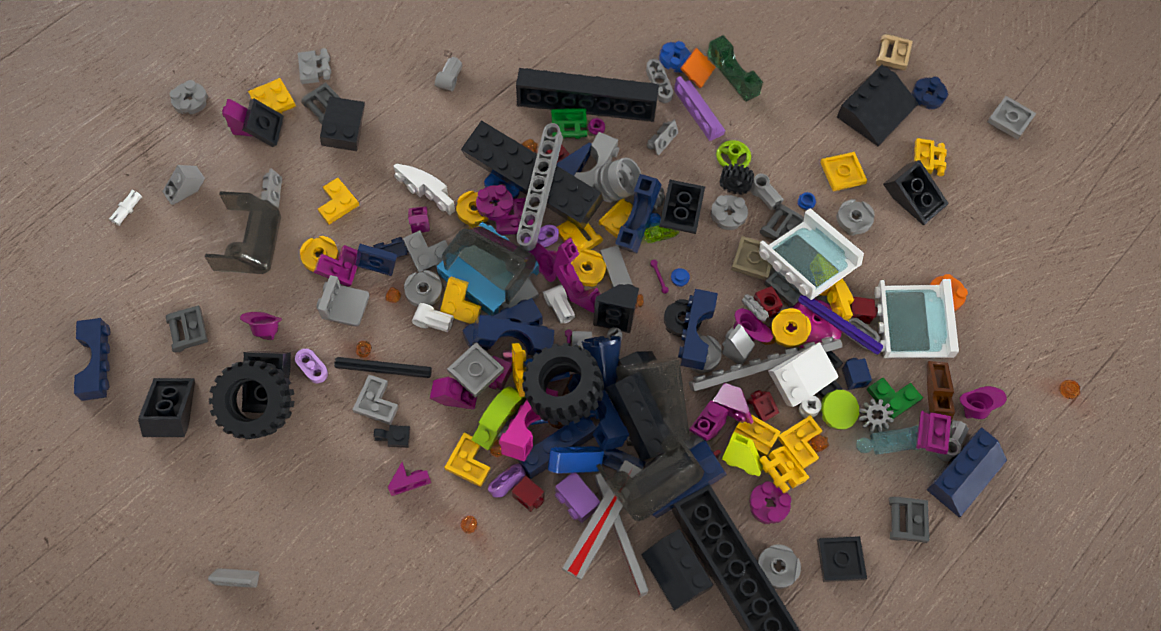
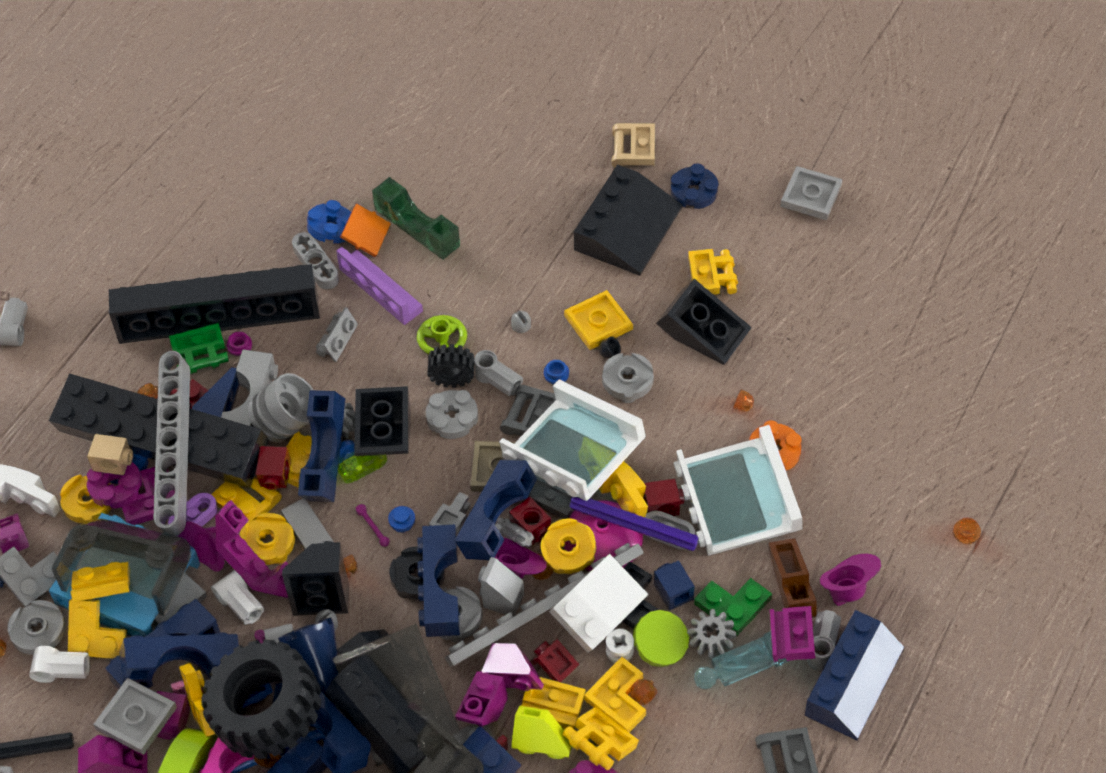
camera: 10 degrees left, 10 degrees down
(472, 270) = (100, 581): none -> yellow plate
(496, 183) = (110, 454): none -> tan brick
(602, 220) = (273, 467): none -> dark red brick
(715, 284) = (452, 514): none -> light grey plate
(758, 274) = (507, 485): none -> dark blue arch
(787, 161) = (517, 324): none -> light grey hinge
(847, 193) = (609, 347): none -> black hinge
(932, 255) = (744, 401): none -> clear orange hinge

